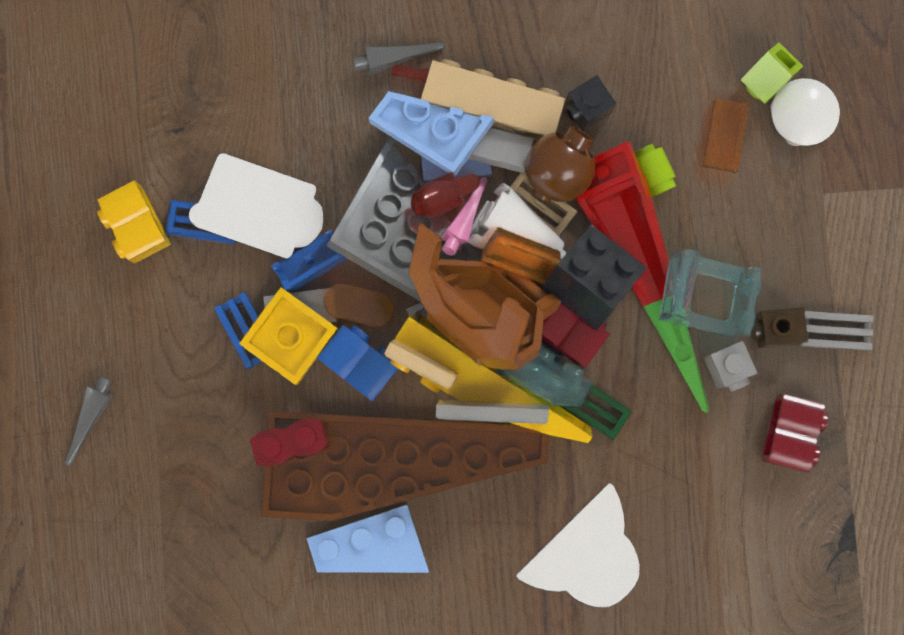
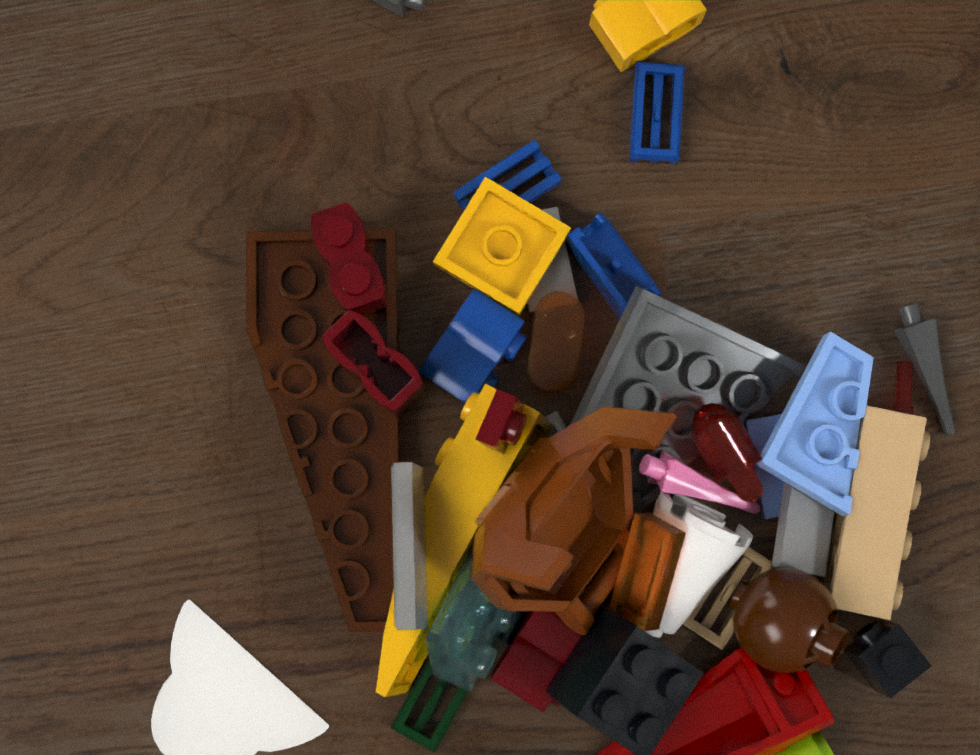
camera: 85 degrees right, 0 degrees up
(258, 207) = (684, 188): white sticker -> none
(356, 436) = (364, 353): none -> dark red brick
(371, 545) = (217, 389): light blue wing -> none
(414, 341) = (502, 422): none -> dark red plate
(421, 364) = (464, 449): tan tile -> none

